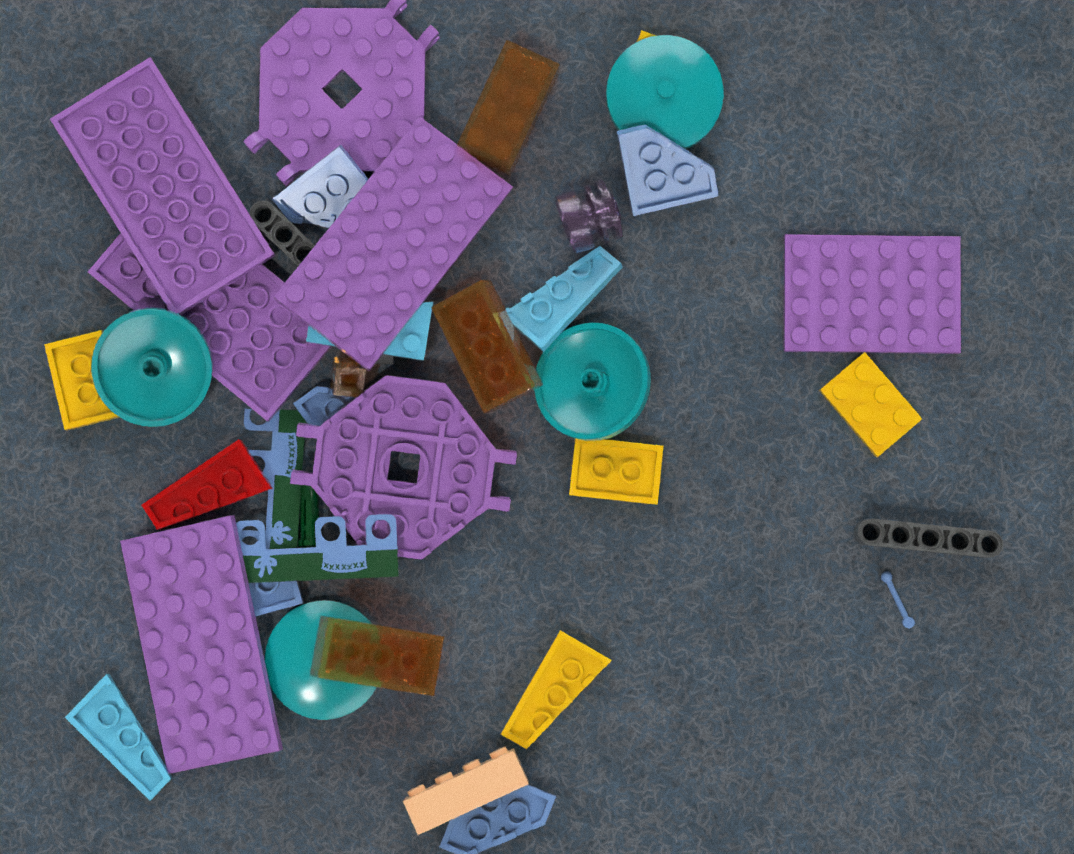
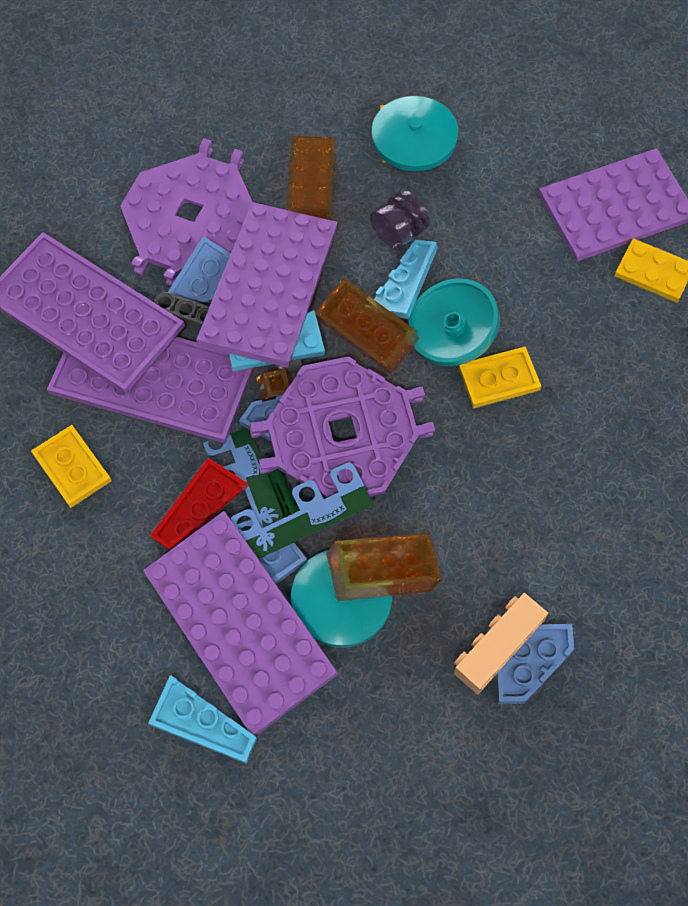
camera: 20 degrees left, 20 degrees down
(152, 367) = (121, 430): teal dish -> none
(557, 682) = (529, 542): yellow wing -> none
(662, 172) = (436, 176): medium blue plate -> none

